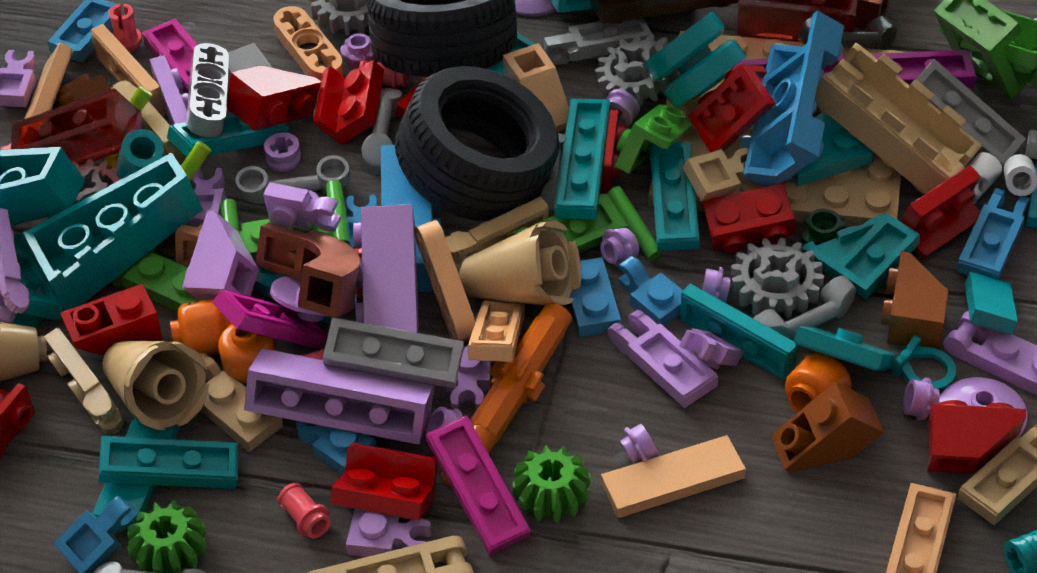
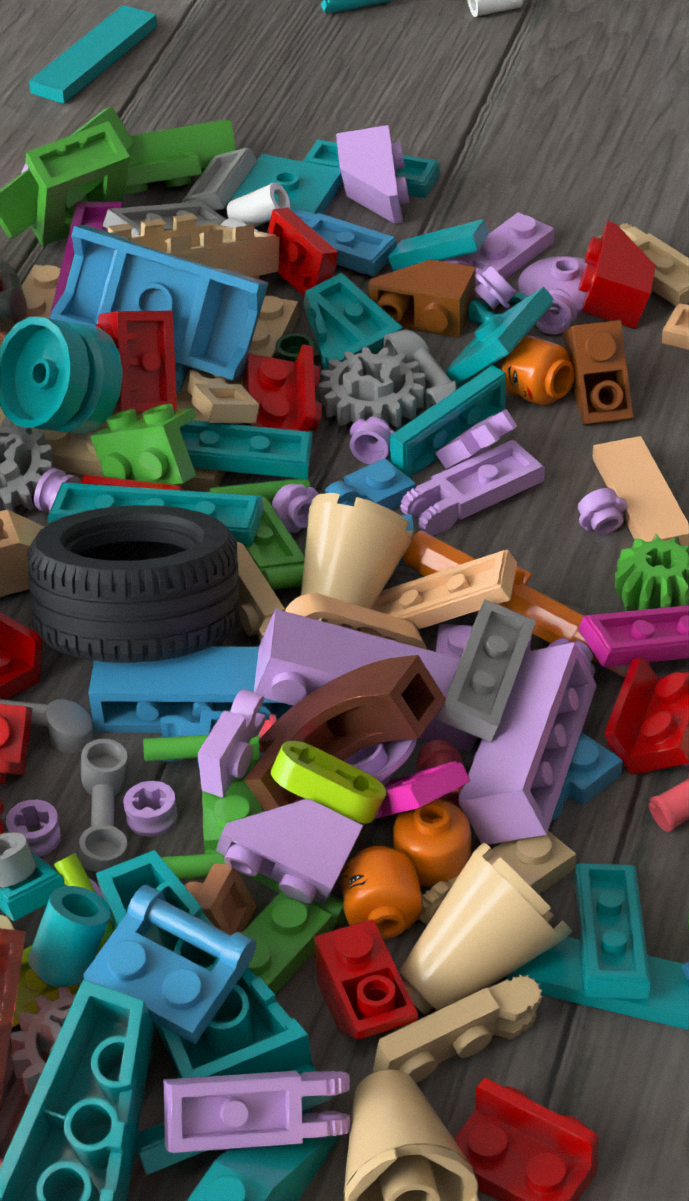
camera: 85 degrees left, 5 degrees down
(94, 199) = (173, 988): none -> dark azure plate
(249, 259) = (328, 781): none -> lime beam
(939, 346) = (494, 288): none -> lavender plate

